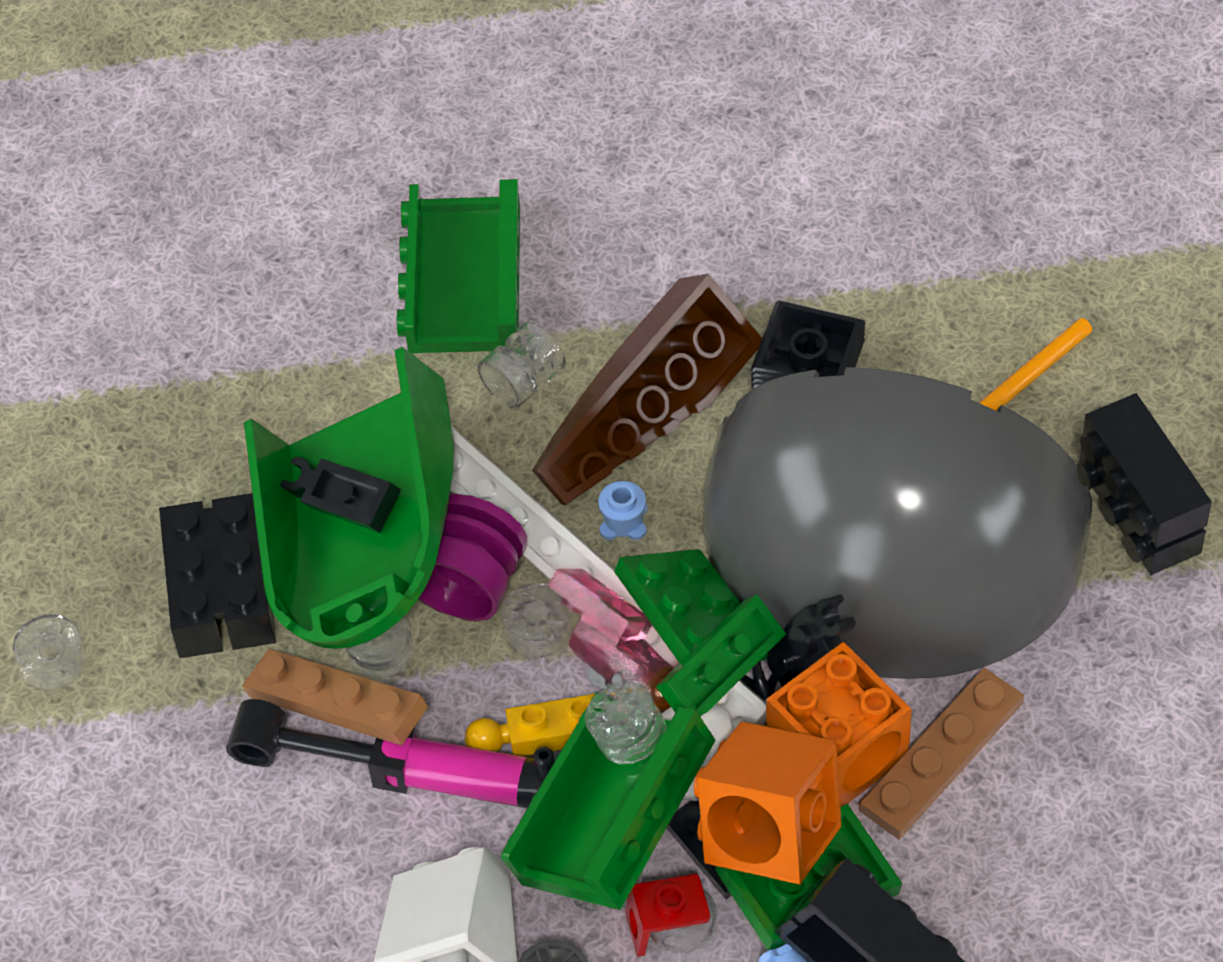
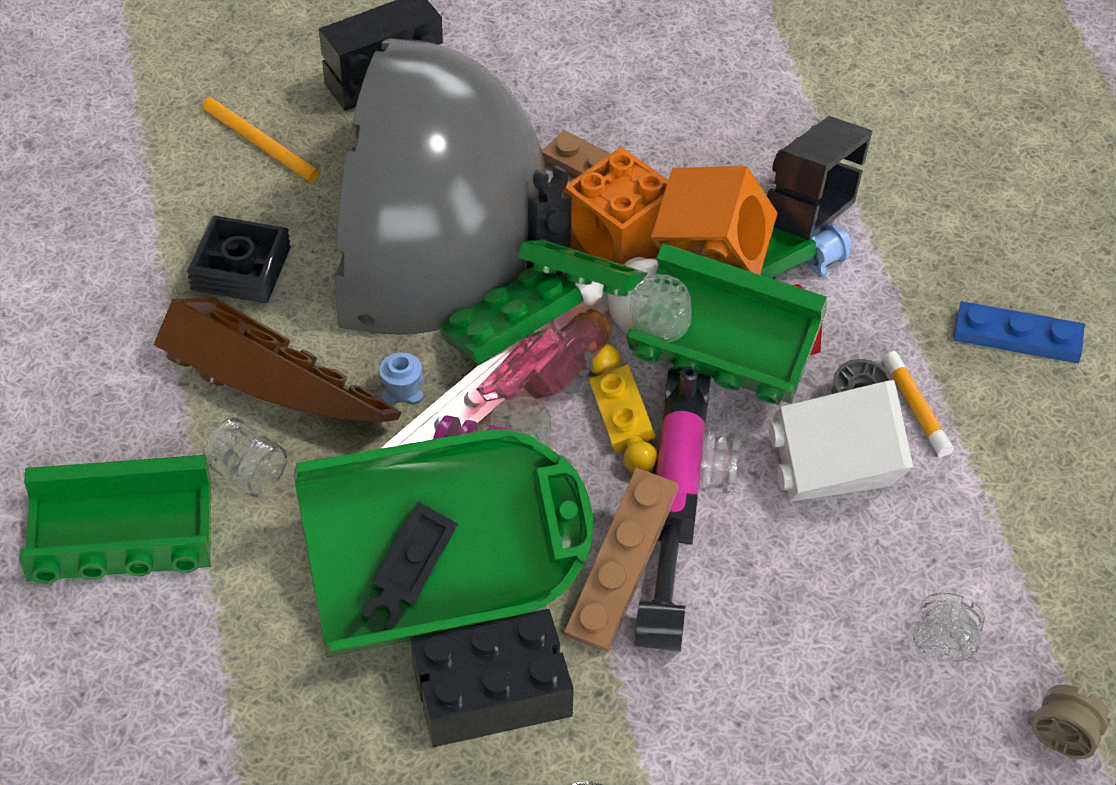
camera: 100 degrees left, 5 degrees down
(456, 807) = (720, 462): none -> clear wheel

